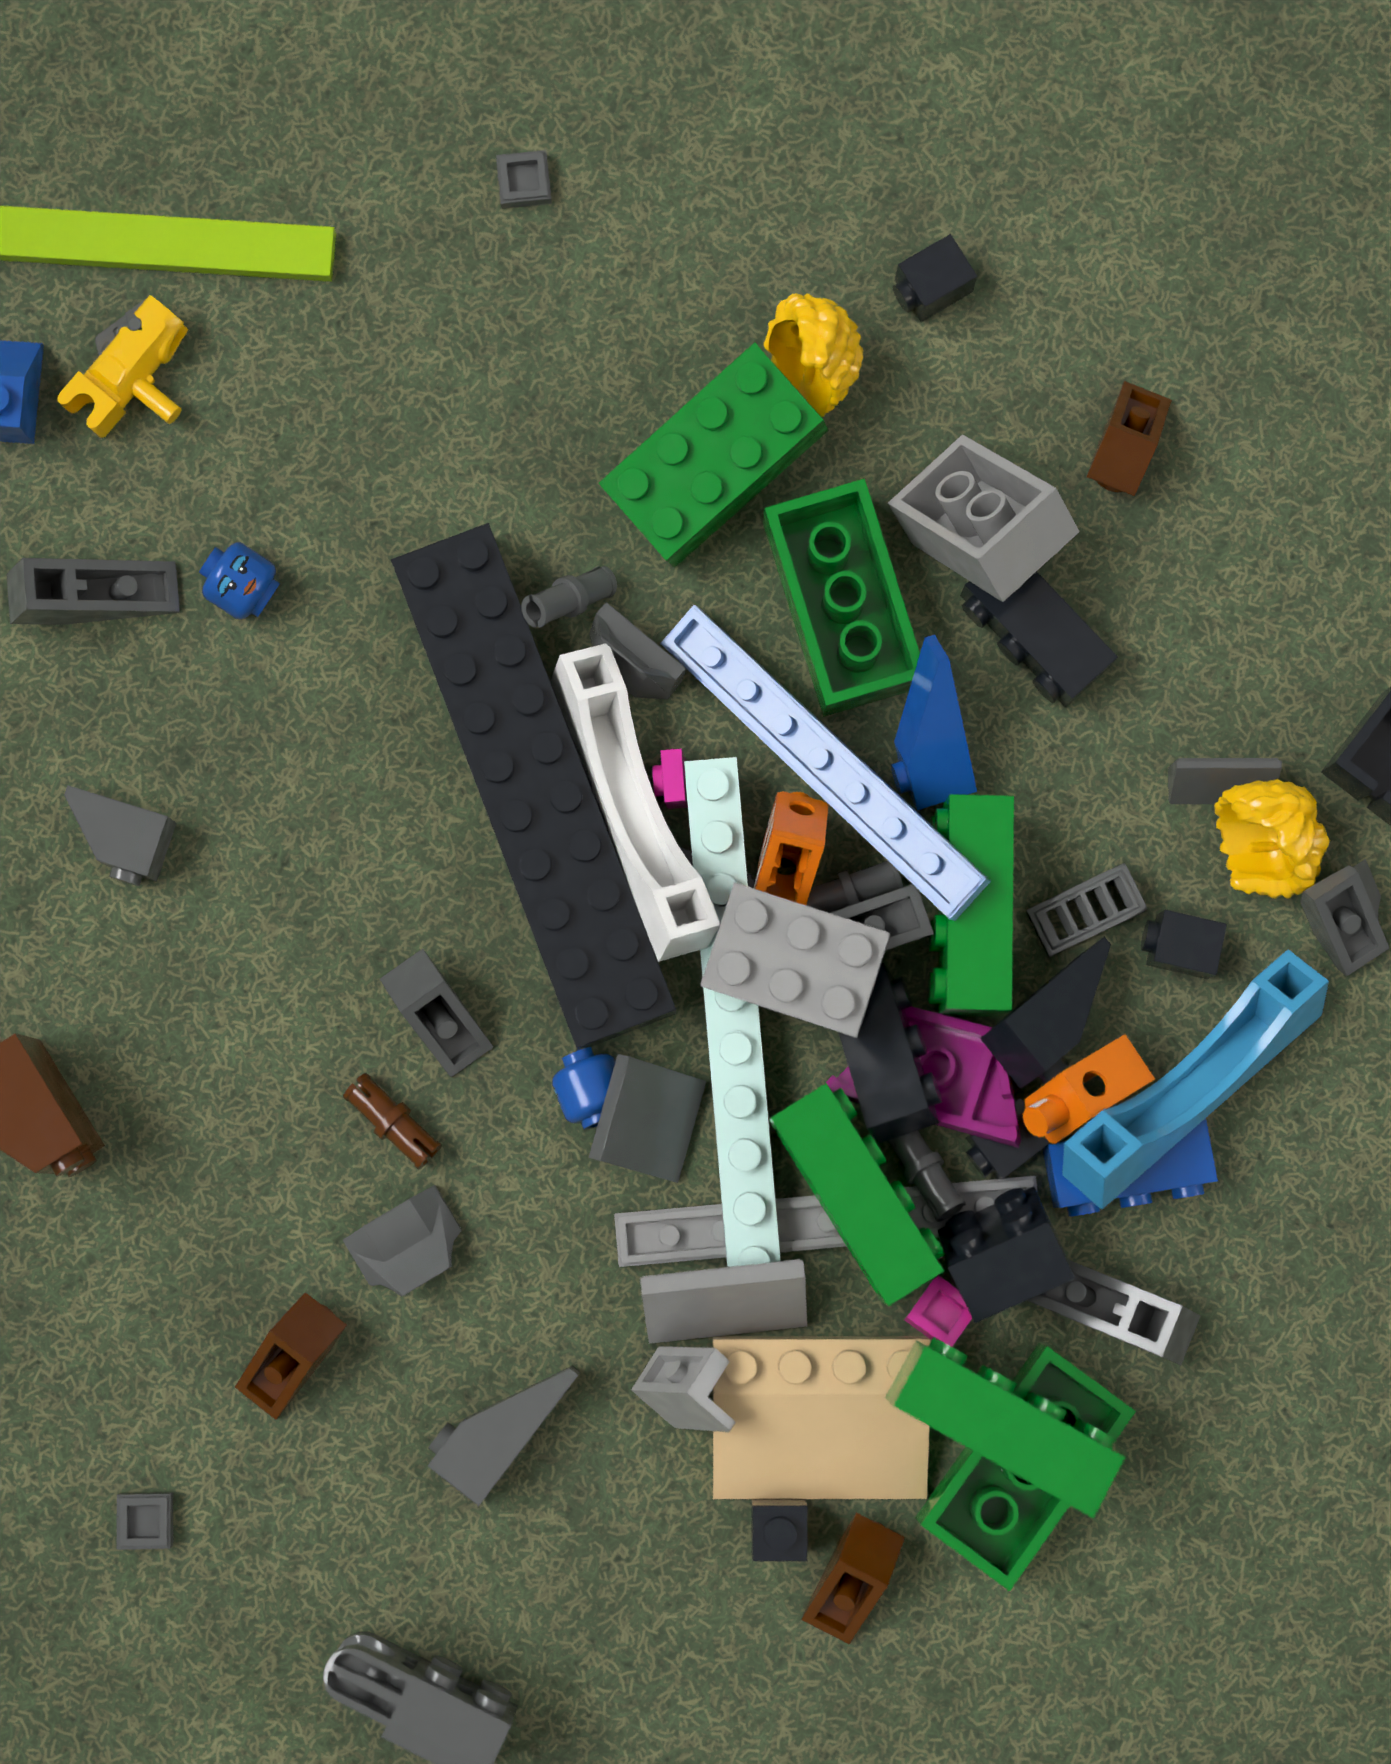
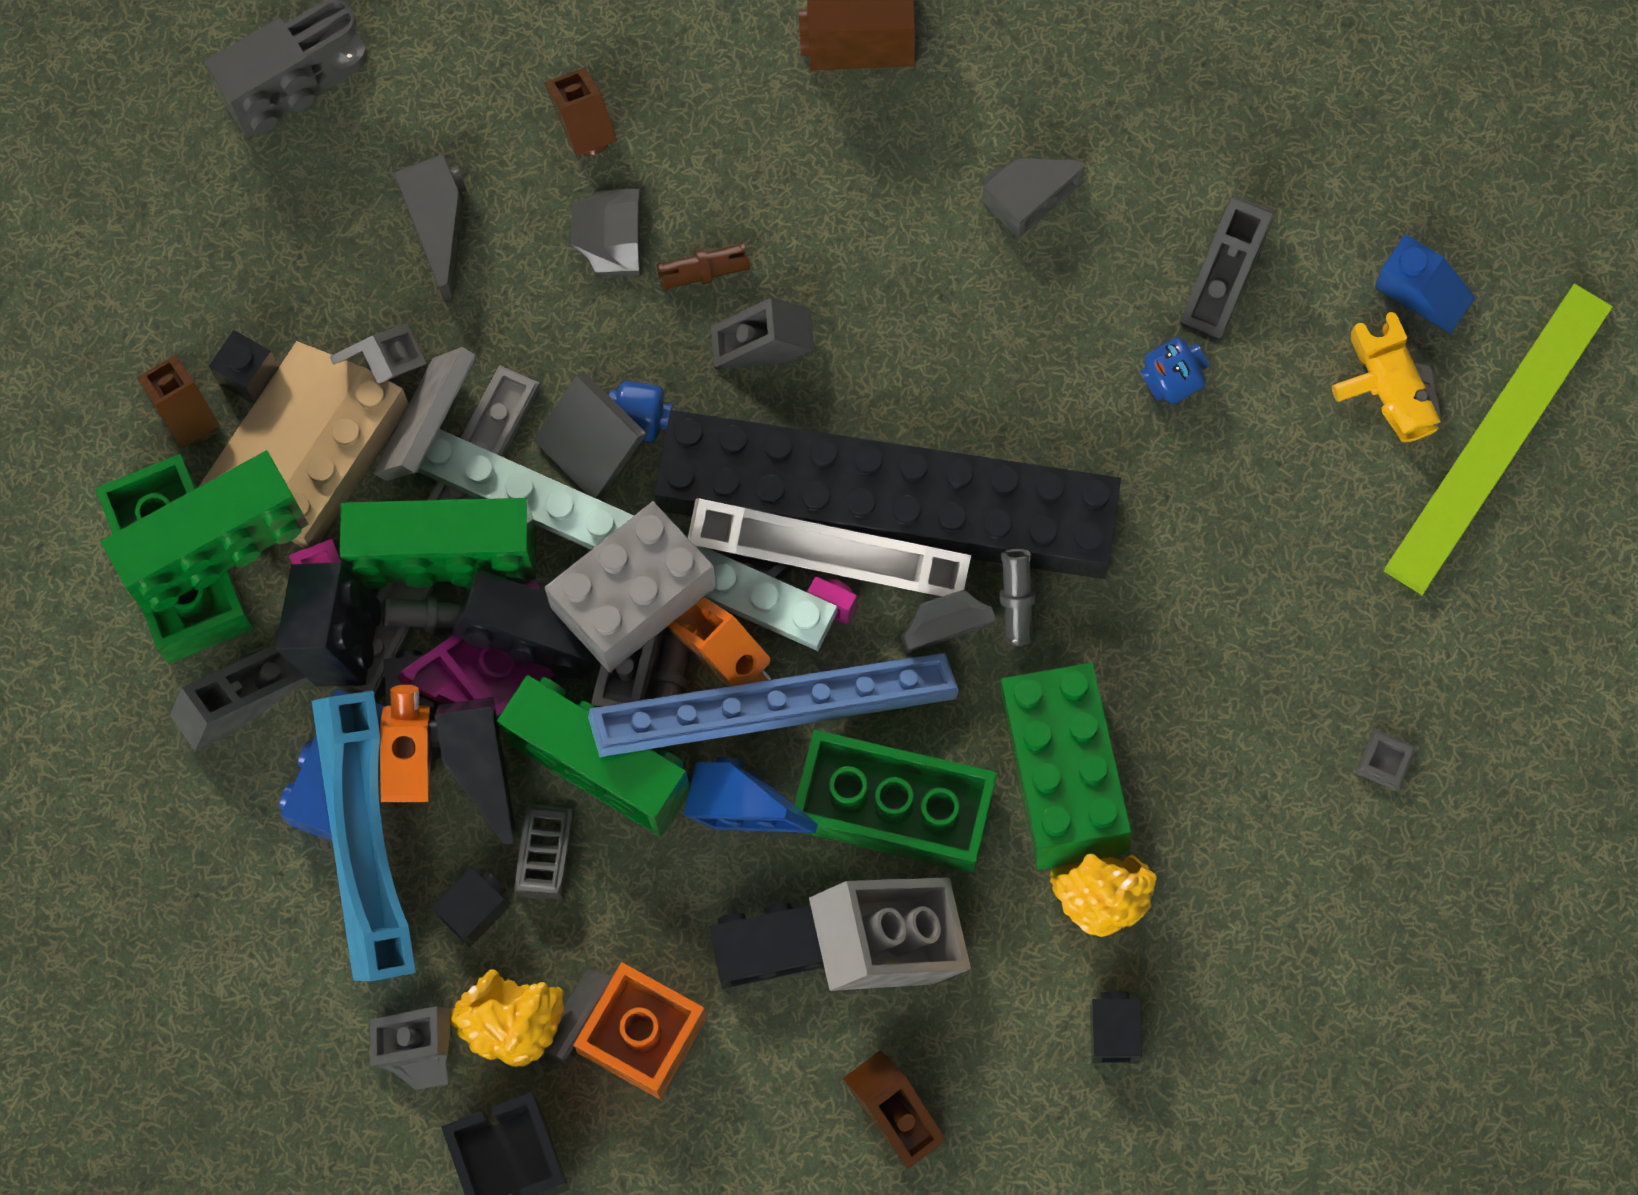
camera: 125 degrees right, 10 degrees down
(1207, 703) = (640, 1030): none -> orange brick

